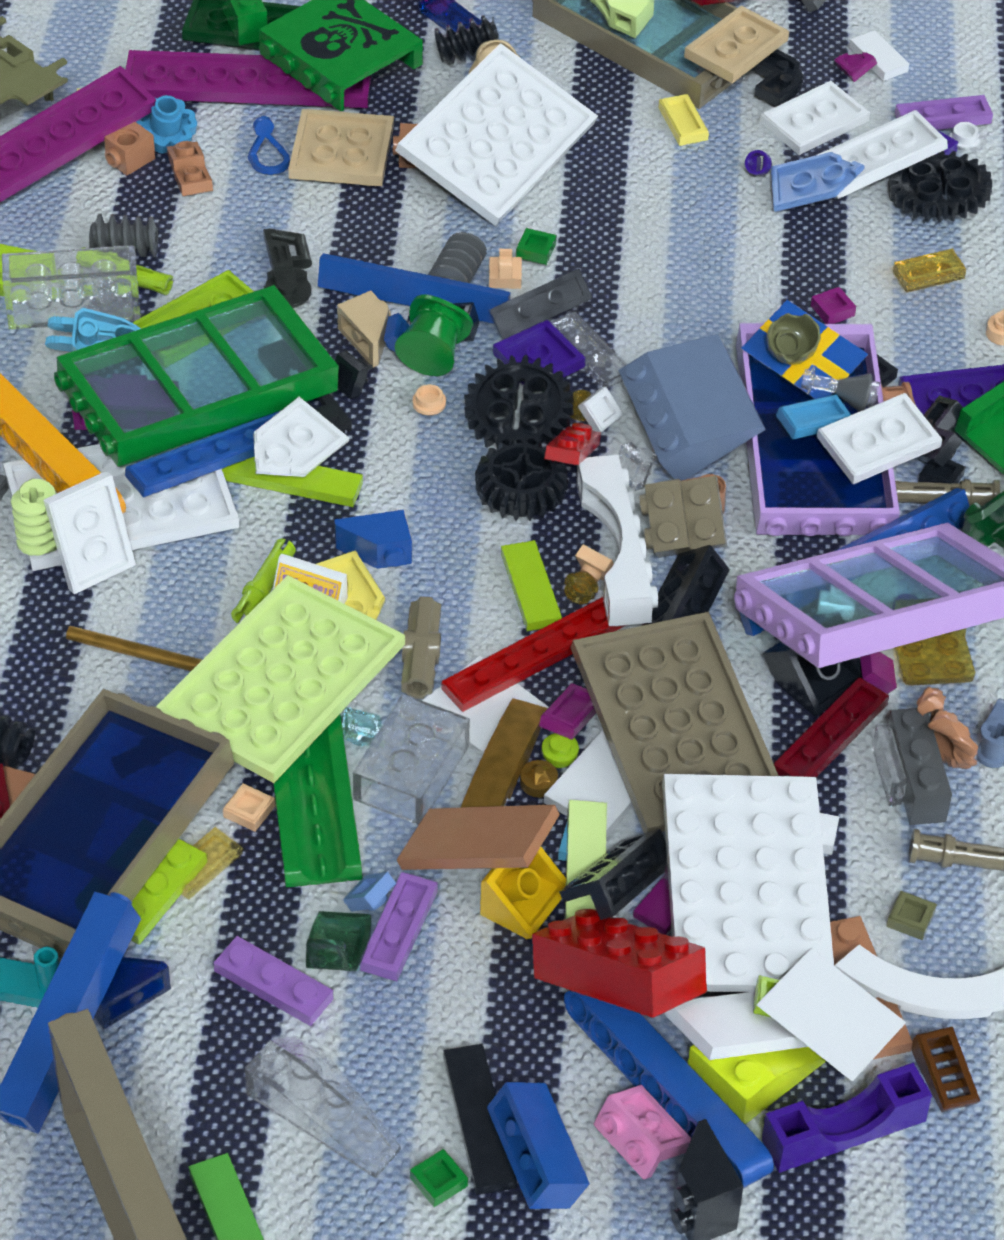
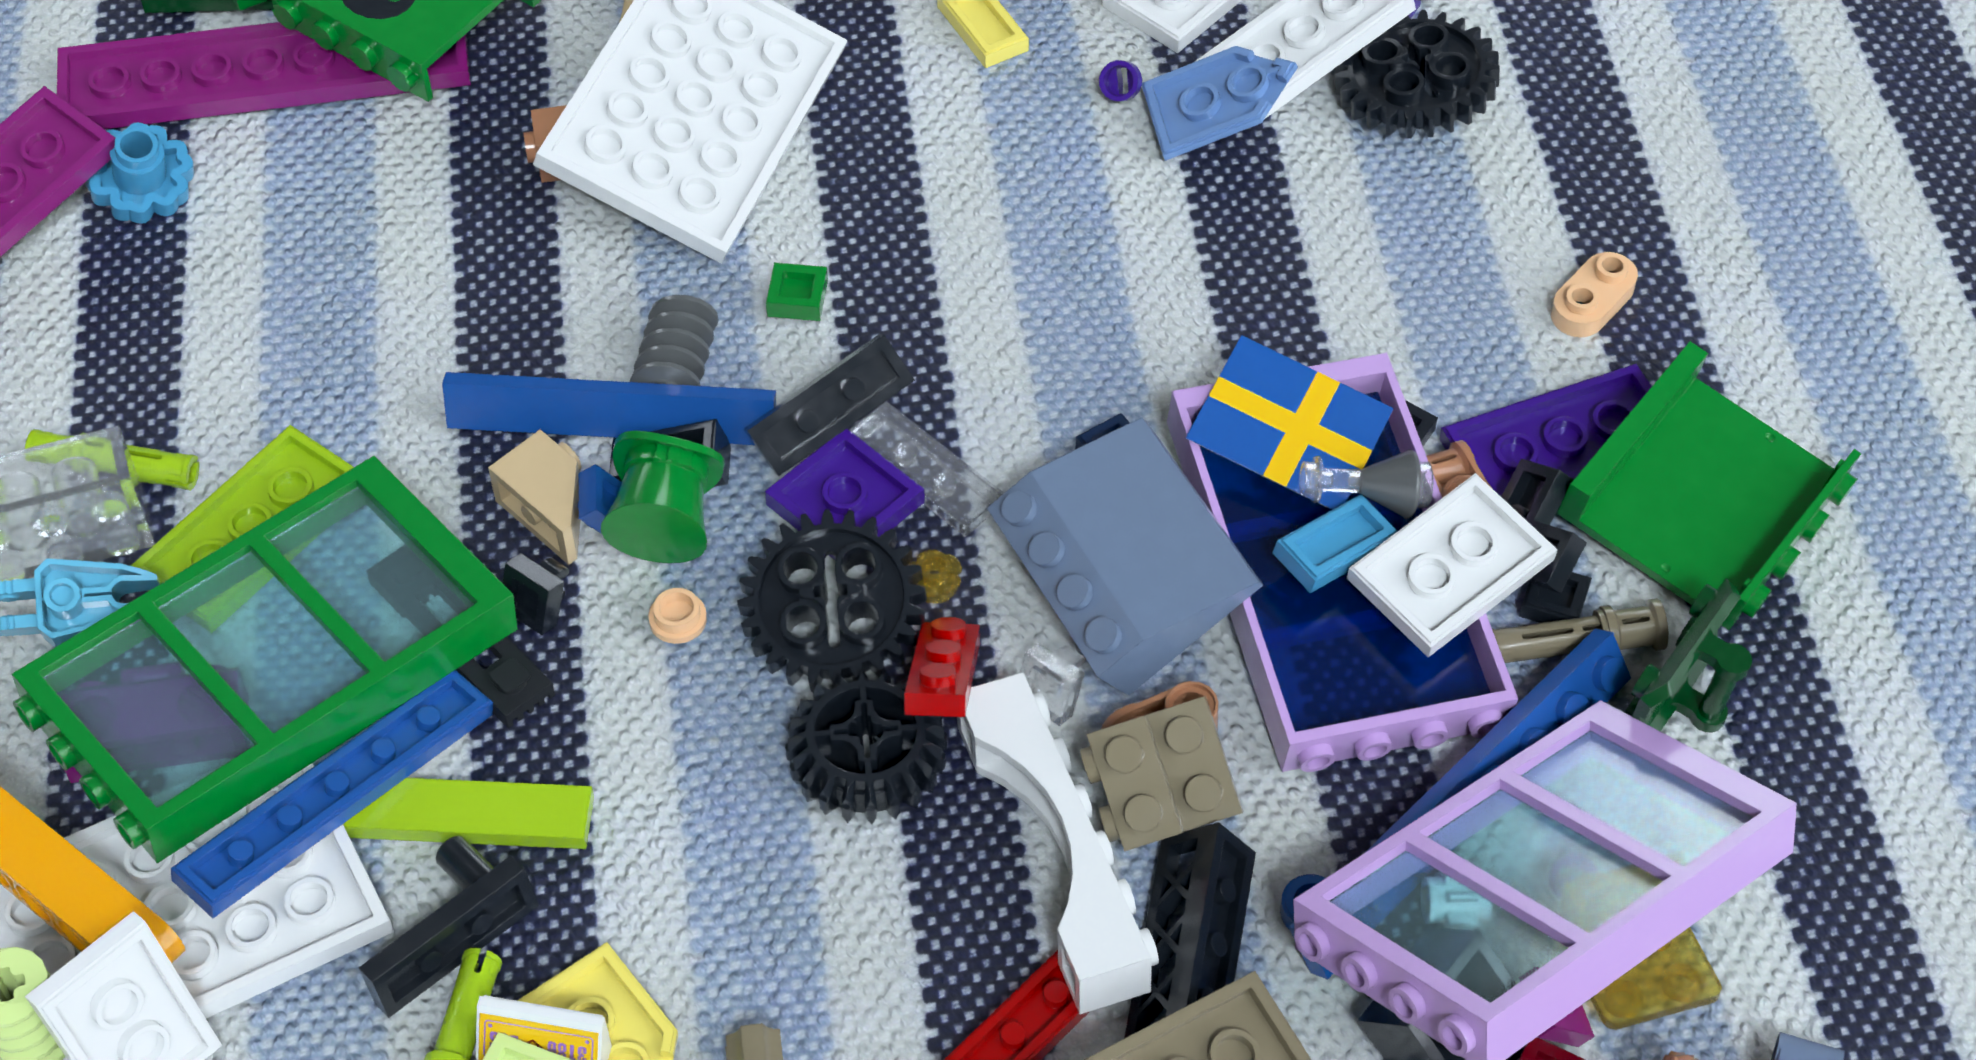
camera: 10 degrees left, 5 degrees up
(124, 234) = (100, 396): dark grey piece -> none
(129, 148) = (85, 227): nougat brick -> none
(189, 168) = (193, 245): nougat slope -> none
(253, 538) = (426, 953): none -> black piece
(263, 128) = (305, 155): blue piece -> none
(288, 270) = (391, 425): pearl dark grey piece -> none
(295, 441) = (463, 748): white tile -> none
(341, 147) = (440, 165): tan plate -> none
(378, 538) = (640, 914): blue slope -> none
(505, 270) = (755, 345): light nougat tile -> none
(530, 585) = (925, 952): lime tile -> none
(580, 587) = (1012, 941): clear yellow plate -> none
(593, 562) = (1029, 895): light nougat plate -> none
(600, 410) = (970, 583): white tile -> none
(793, 338) = (1273, 410): olive hair -> none
(833, 306) = (1300, 315): magenta tile -> none
(929, 270) = (1437, 225): clear yellow plate -> none

